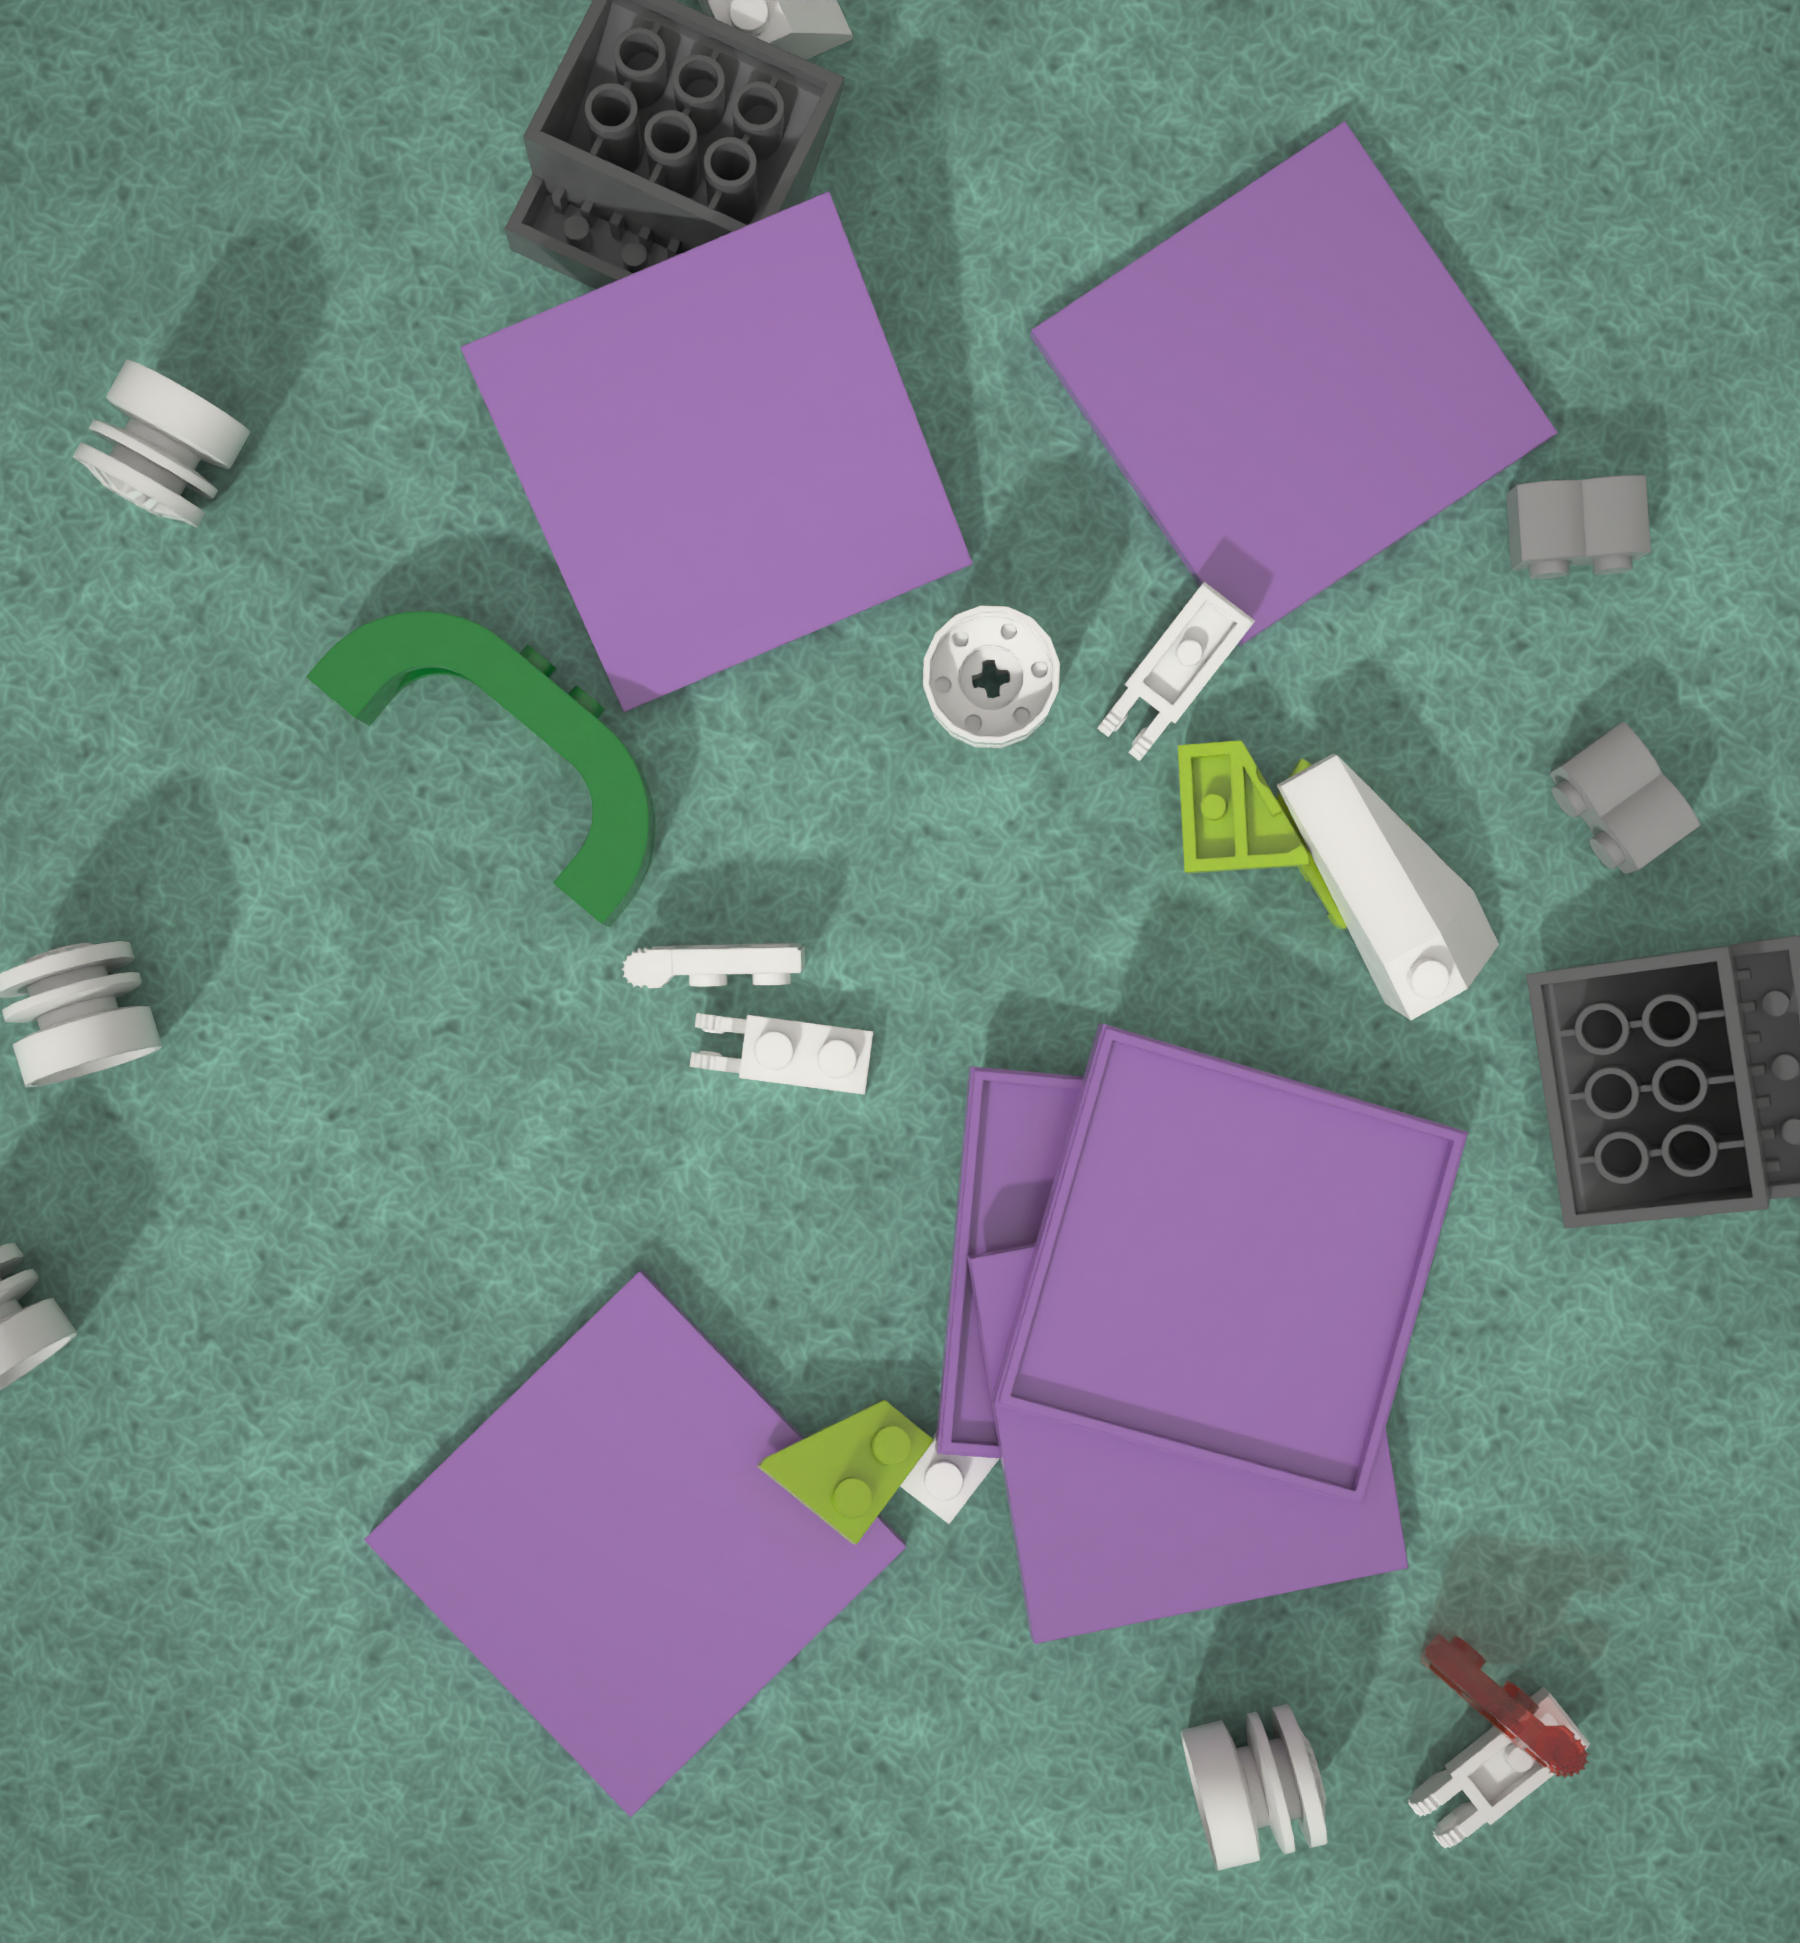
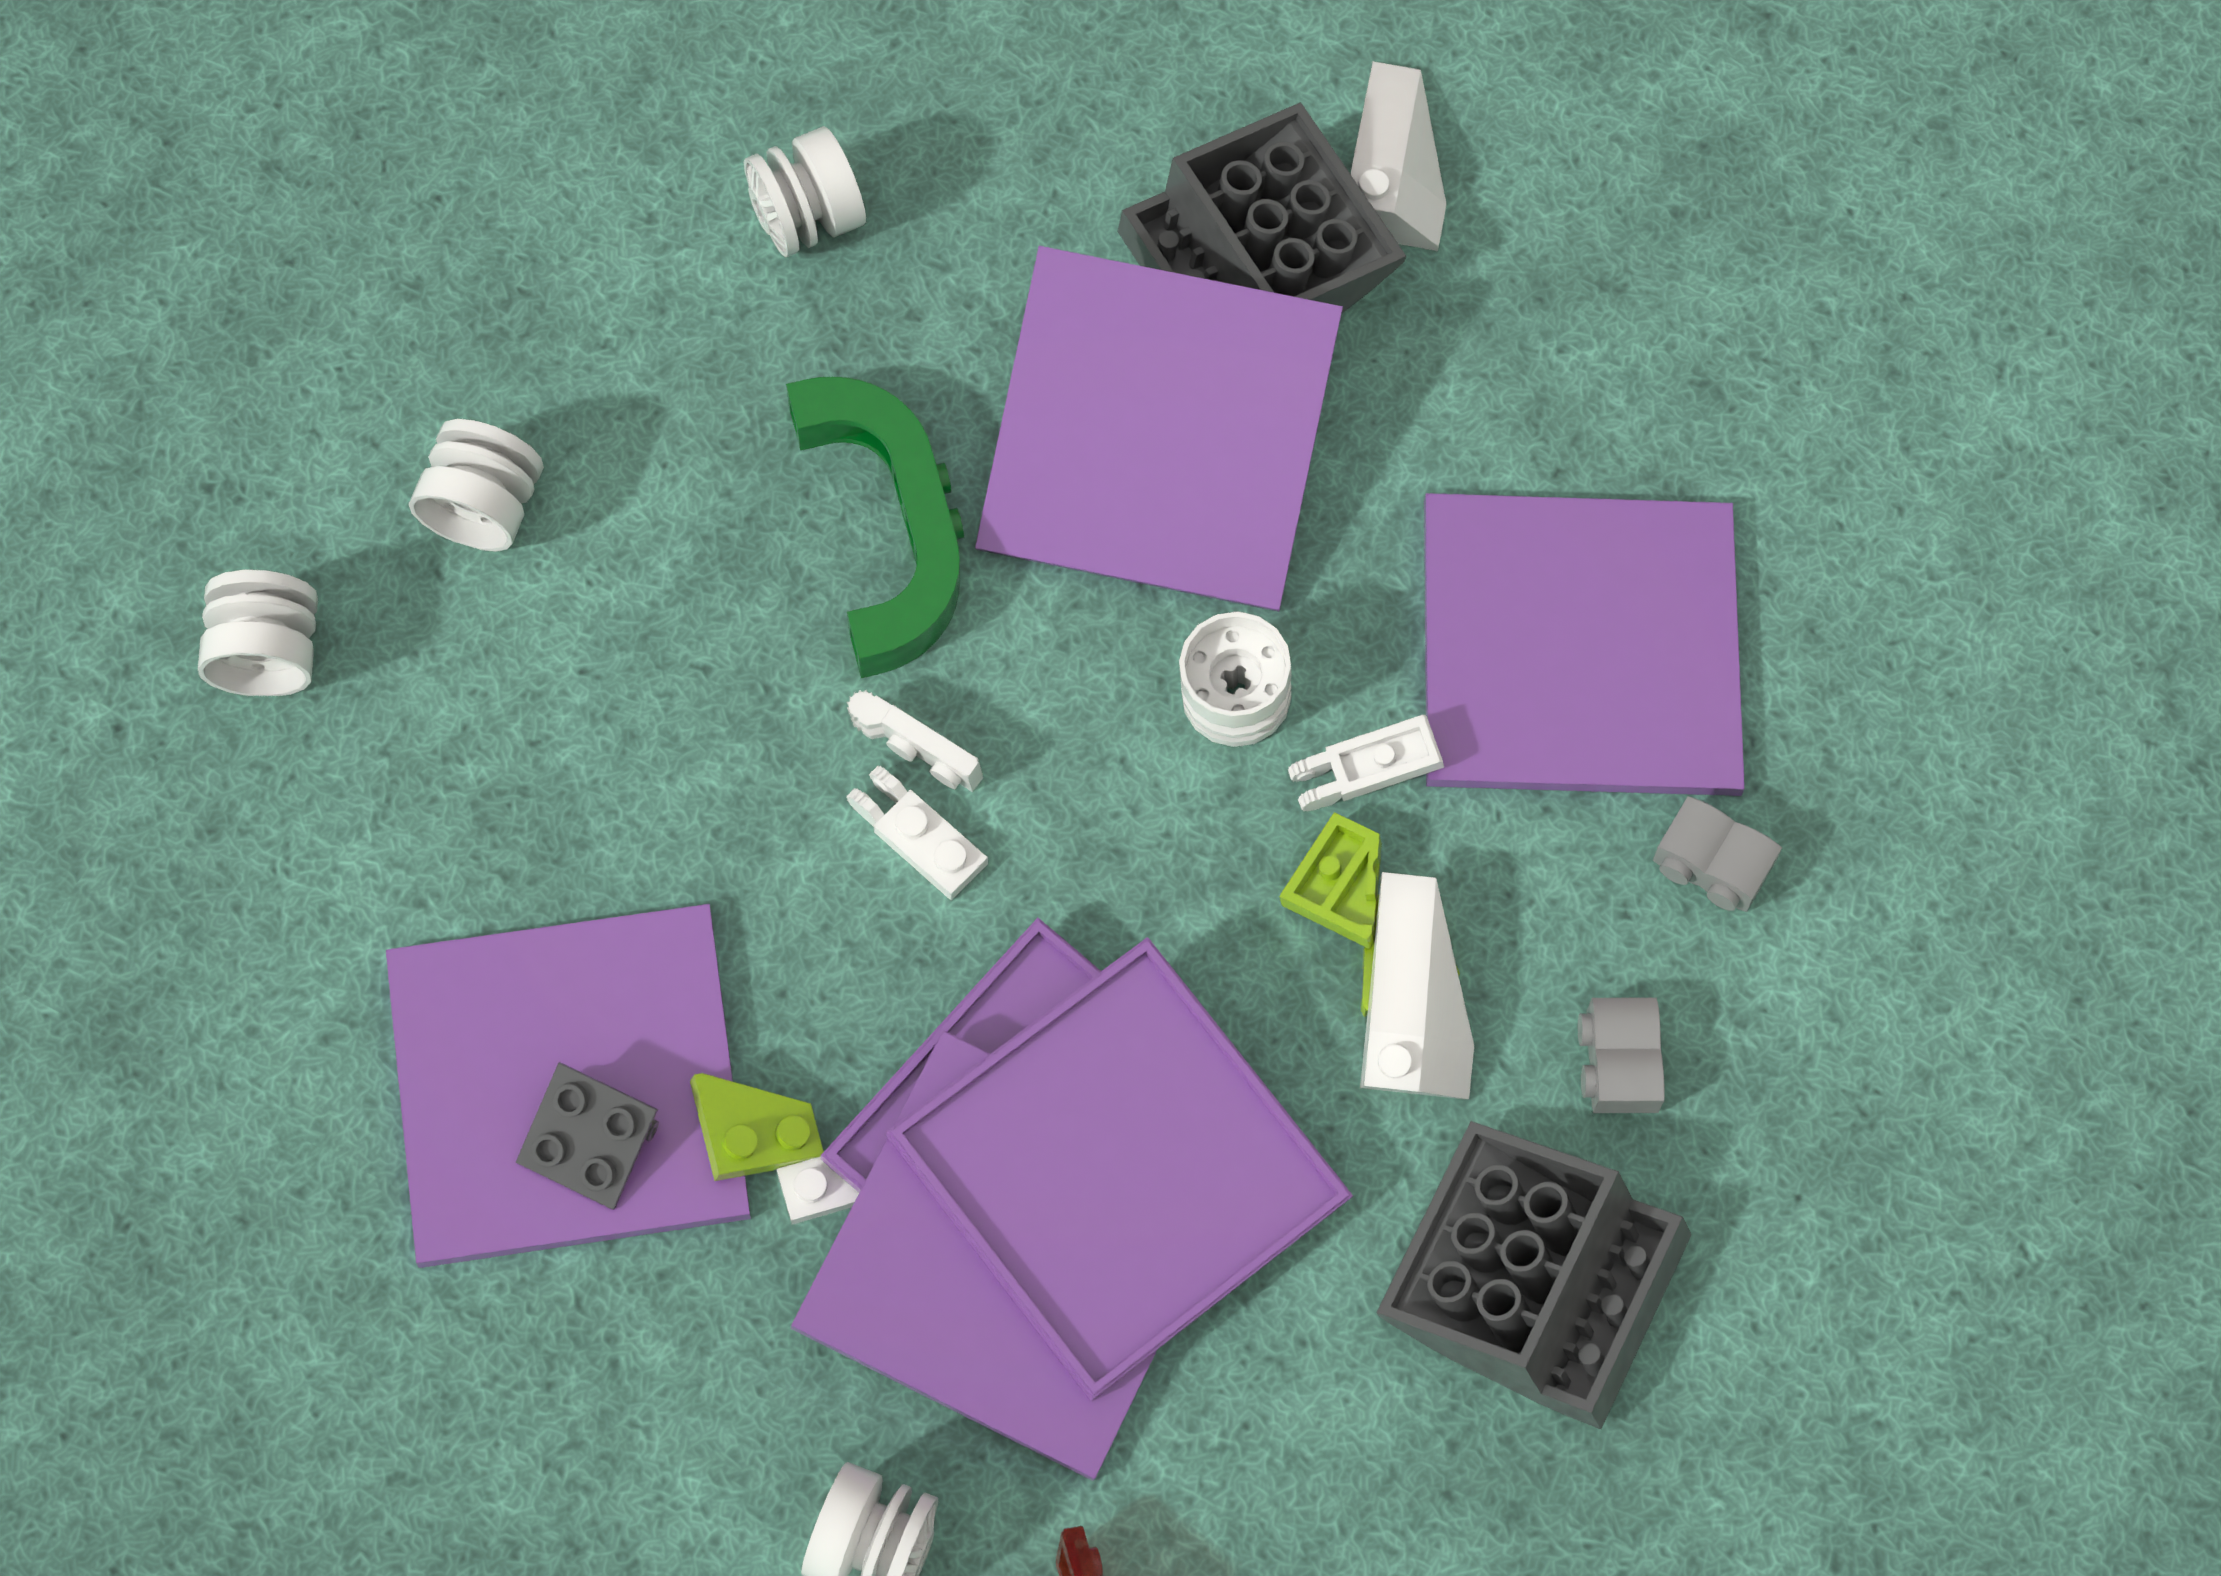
camera: 30 degrees right, 20 degrees down
(701, 1592) = (587, 1135): none -> dark grey hinge

